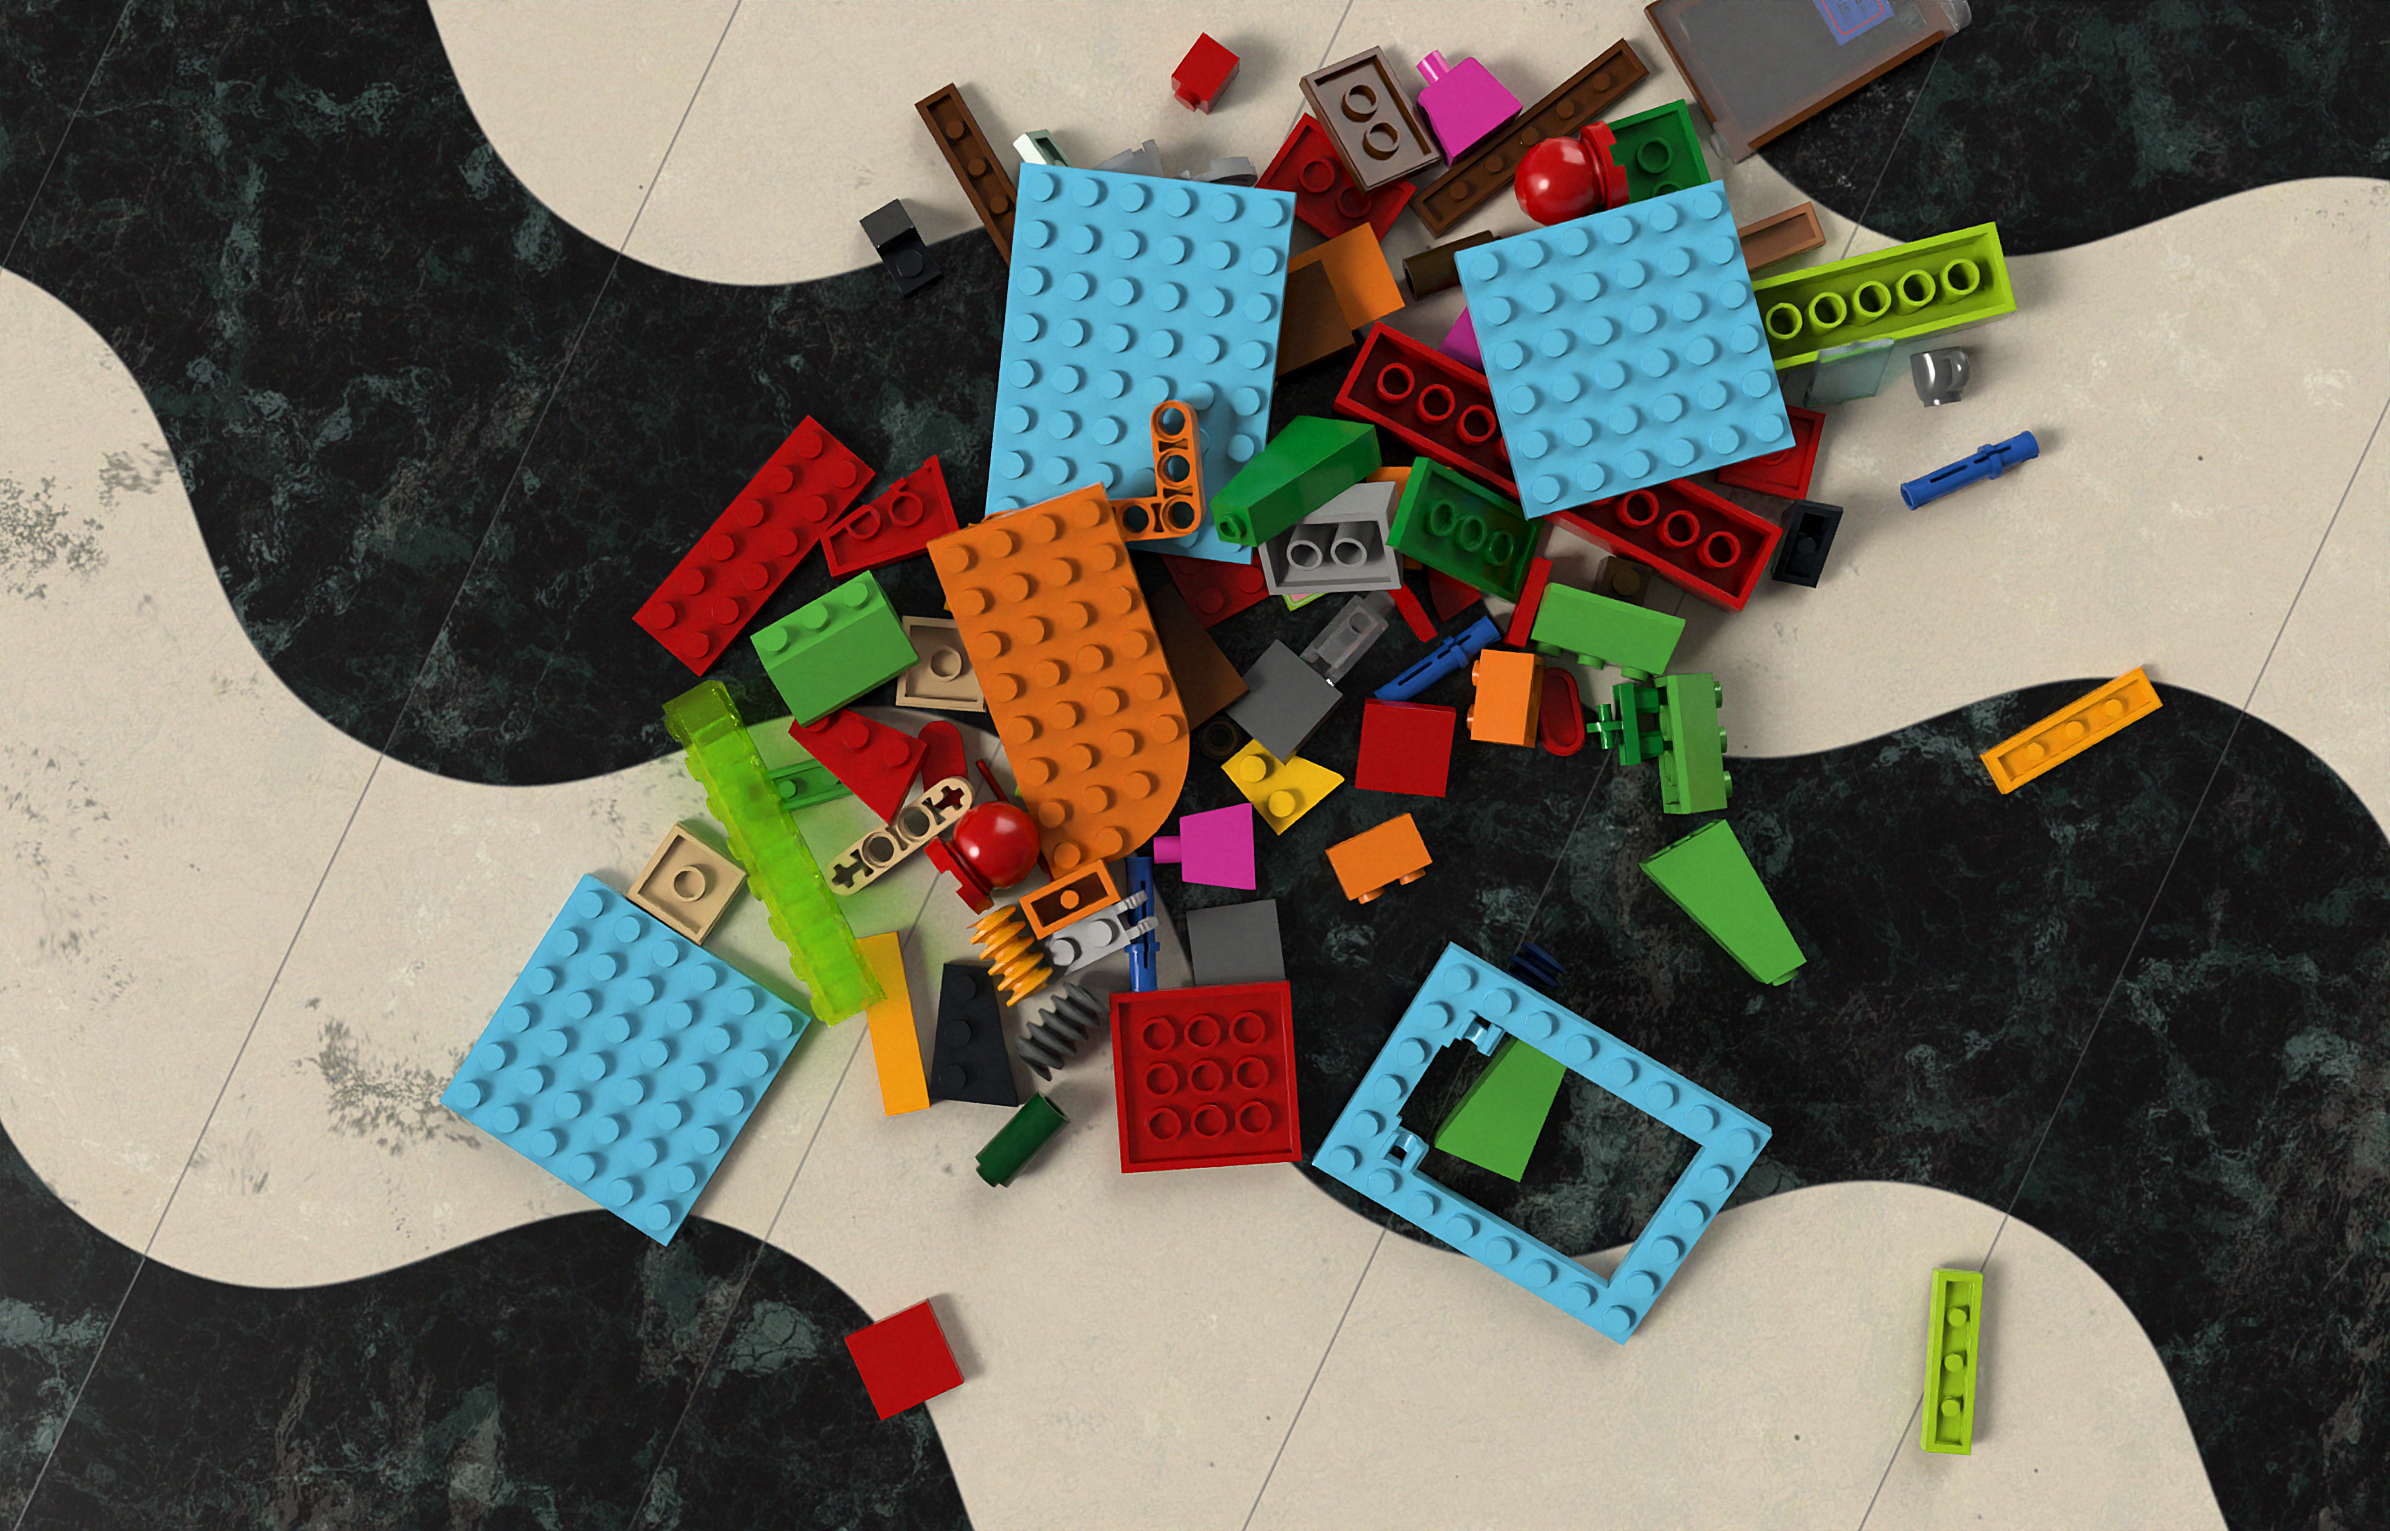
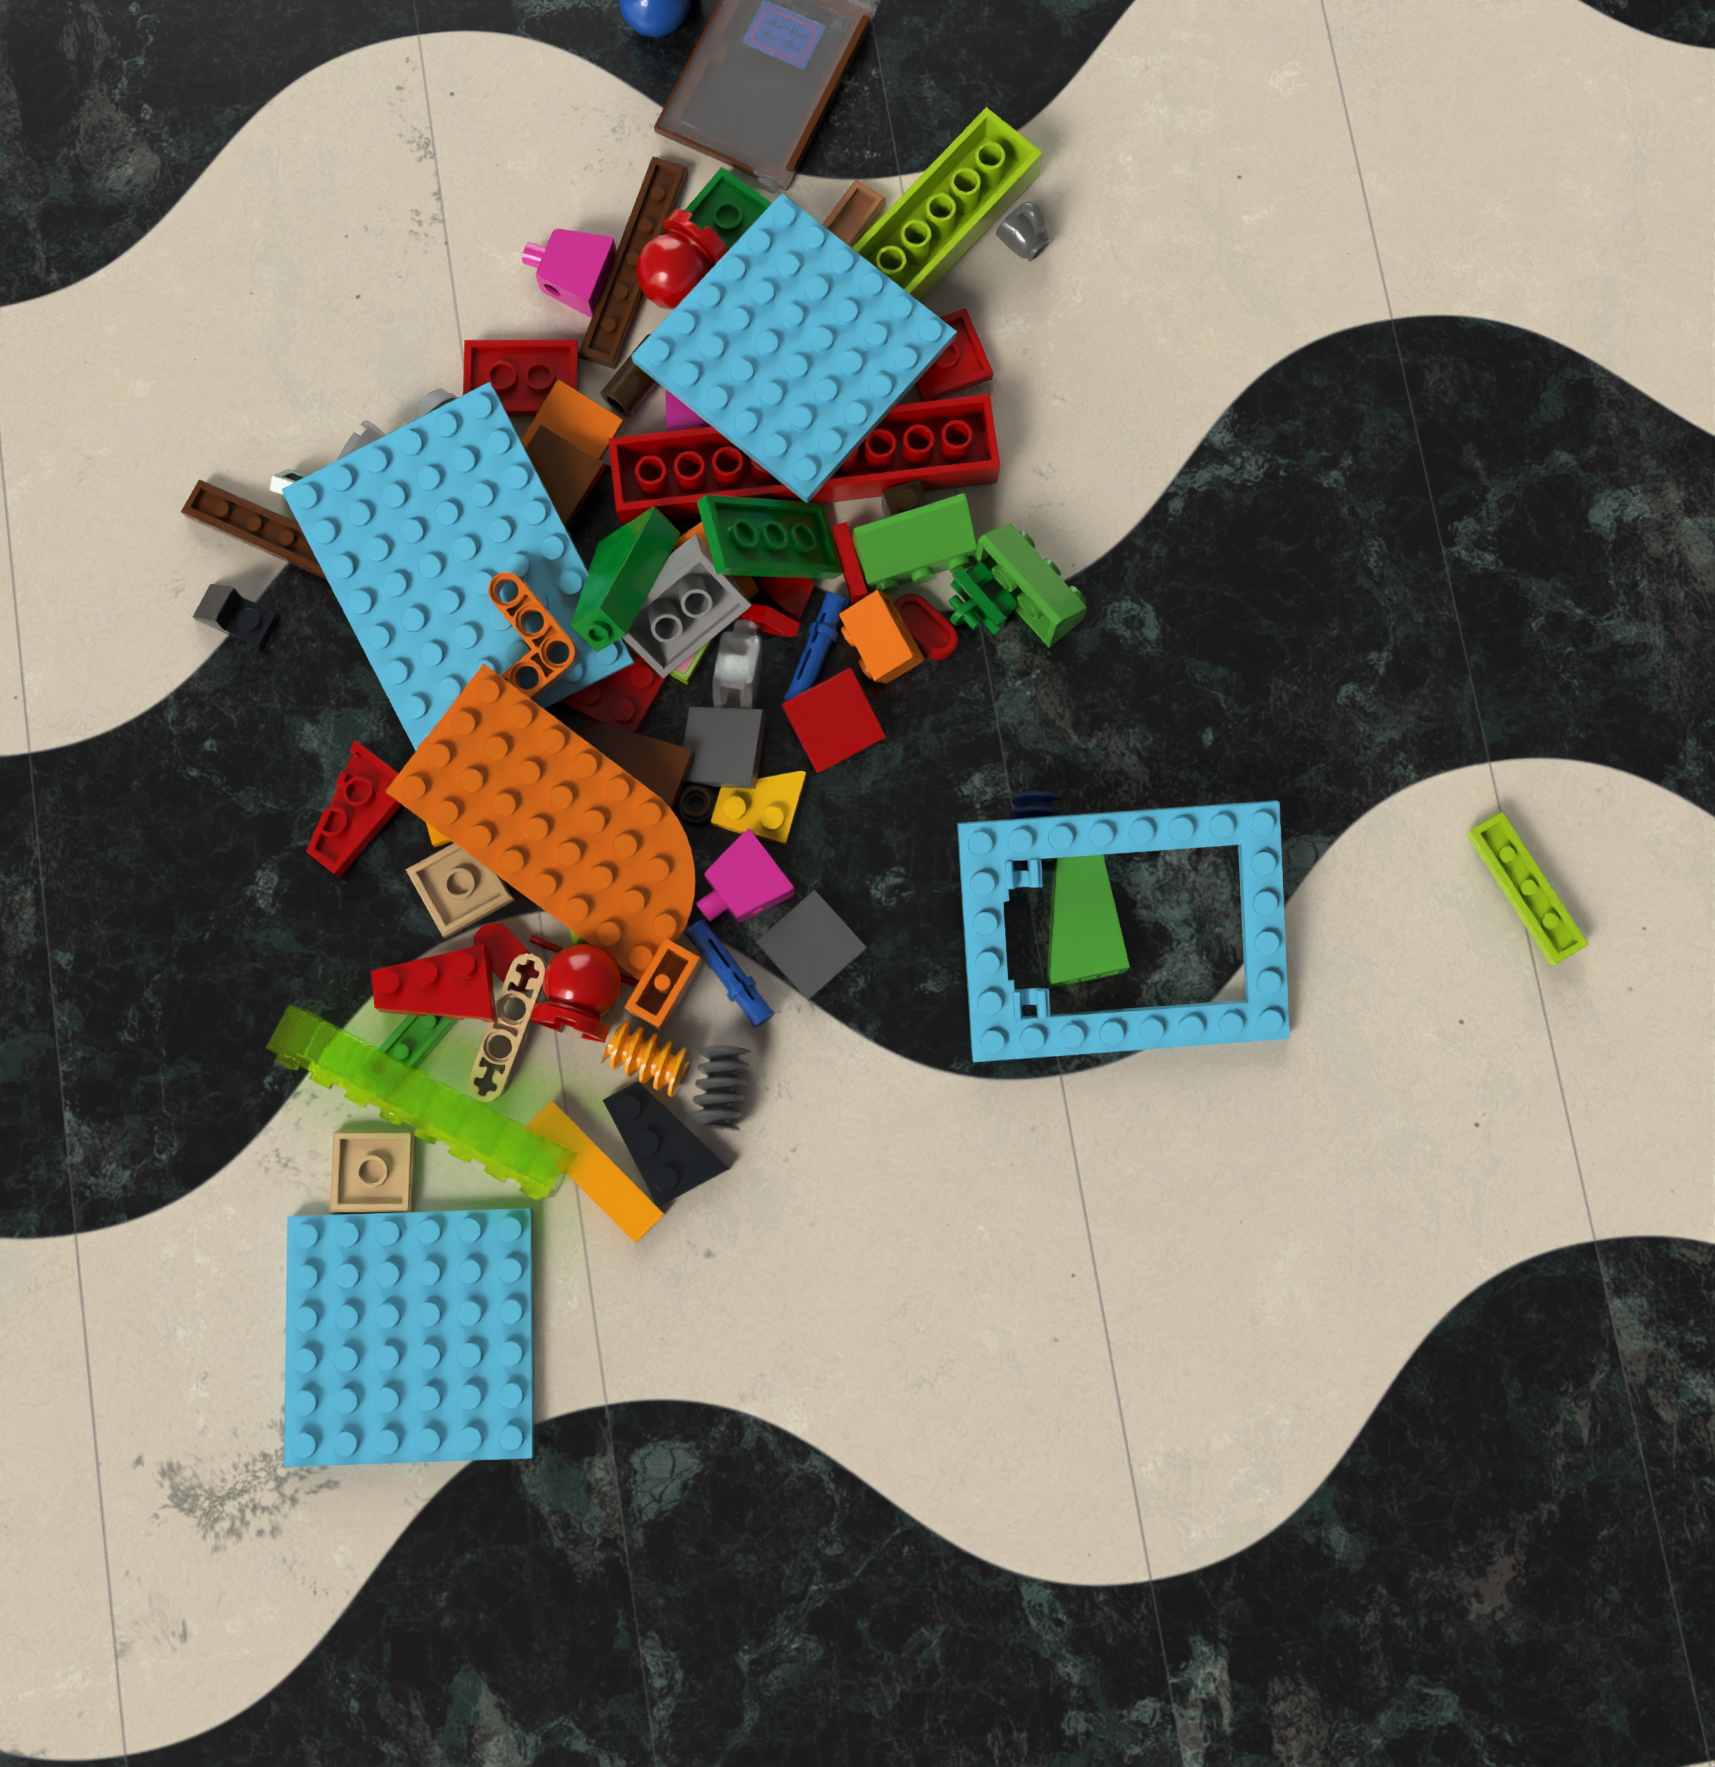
camera: 35 degrees left, 10 degrees down
(755, 546) = (263, 894): red plate -> none
(835, 649) = (370, 921): bright green slope -> none
(904, 1359) = (771, 1419): red tile -> none
(1021, 1140) = (747, 1191): dark green brick -> none
(1095, 936) = (700, 1001): light grey hinge -> none
(1204, 74) = (376, 360): red brick -> none
(1205, 1076) = (851, 1050): red plate -> none
(1370, 121) = (514, 317): tile -> none
(1379, 857) = (868, 808): orange brick -> none
(1724, 895) = (1135, 674): bright green slope -> none
(1805, 542) = (1012, 396): black slope -> none
(1848, 372) = (960, 268): clear light blue piece -> none
(1986, 463) = (1098, 269): blue pin -> none
(2071, 730) = (1285, 406): light orange tile -> none

